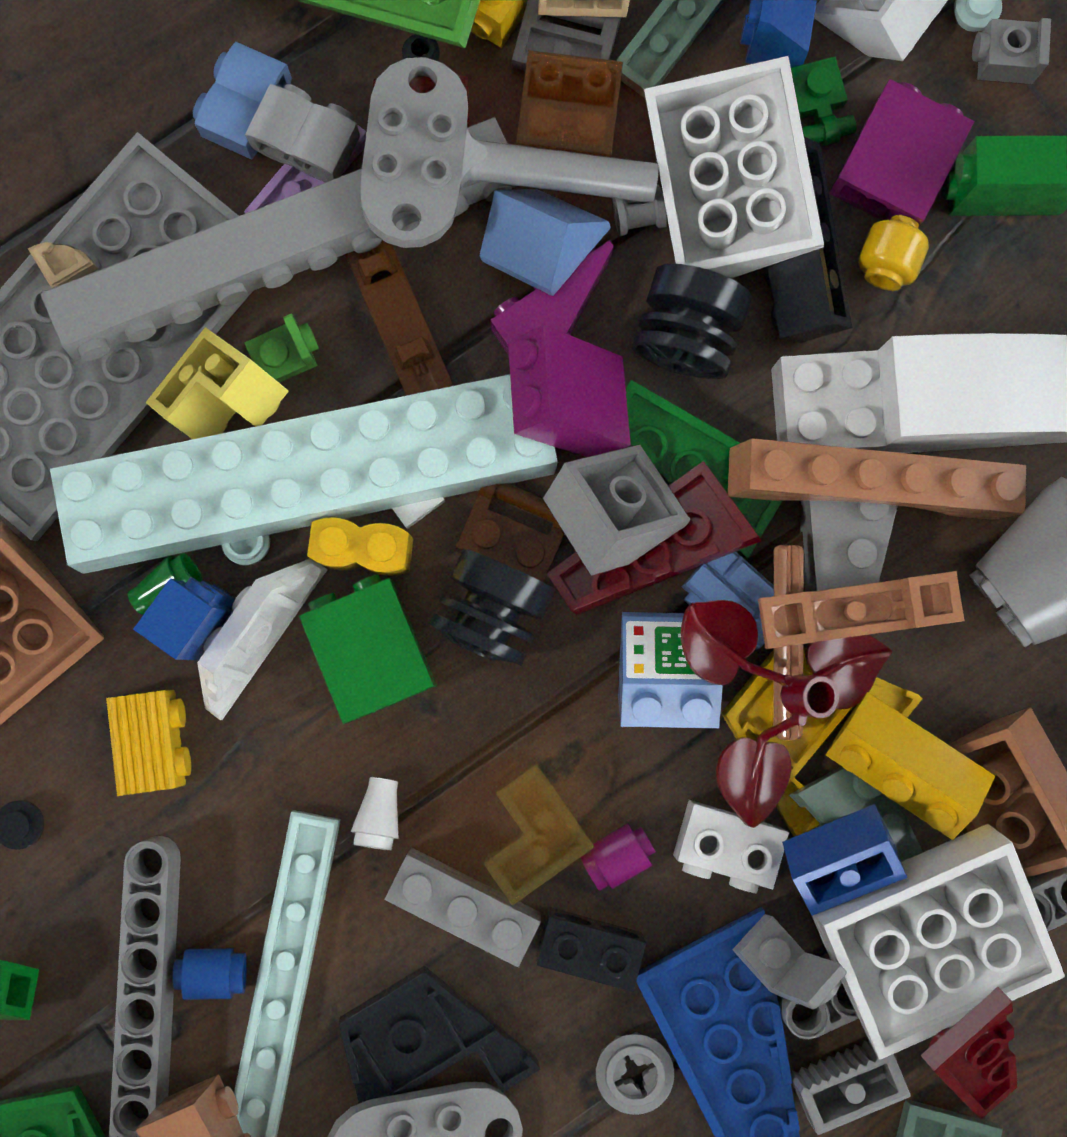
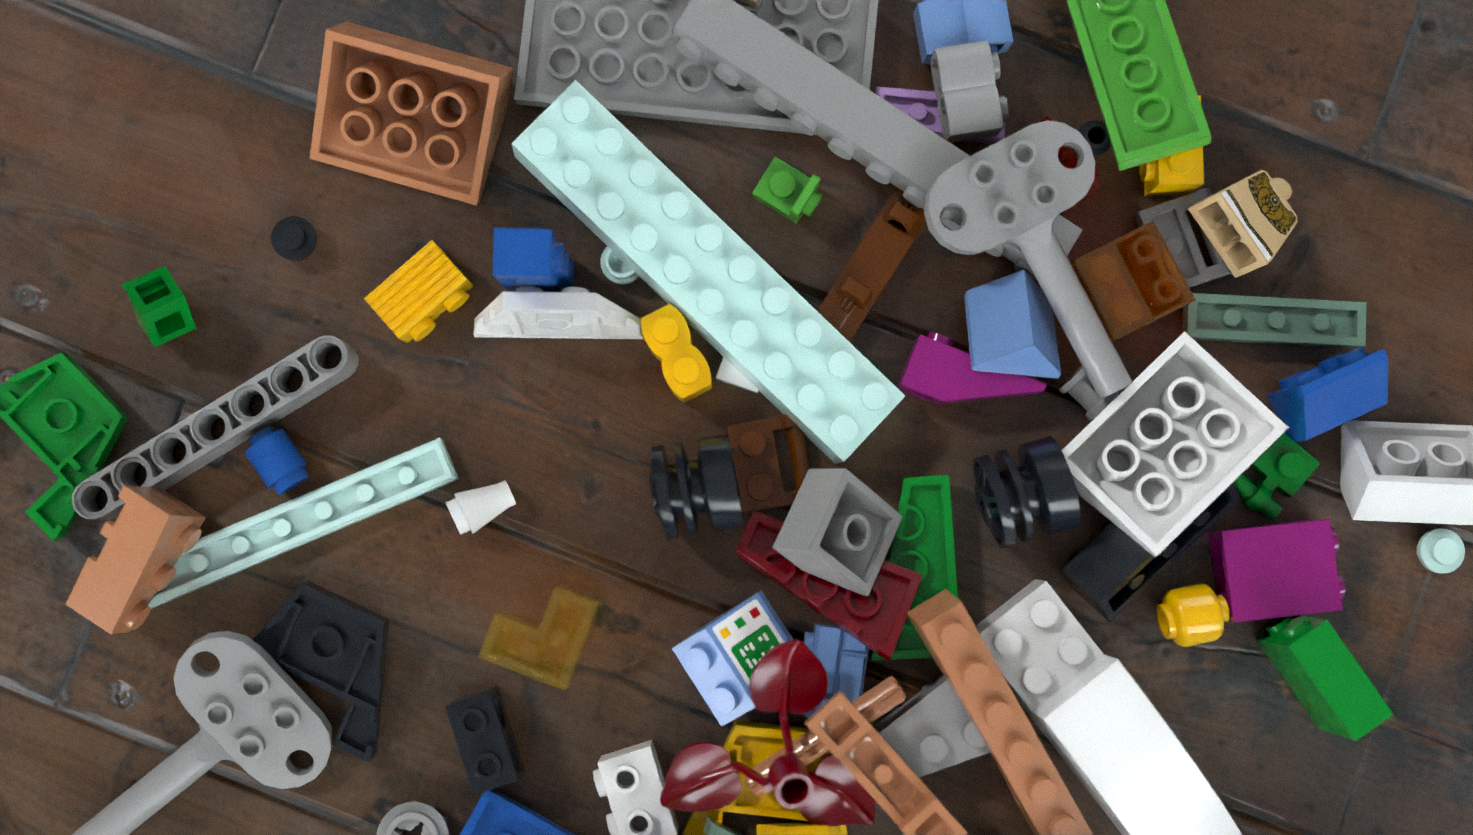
camera: 55 degrees right, 0 degrees up
(177, 567) = (561, 221): green cone -> none
(213, 385) = (722, 156): light yellow brick -> none
(366, 648) = (602, 411): green brick -> none
(464, 907) = (453, 620): light grey brick -> none
(568, 393) = (903, 434): magenta brick -> none
(618, 857) = (570, 714): magenta brick -> none
(1004, 63) = (1408, 601): light grey brick -> none

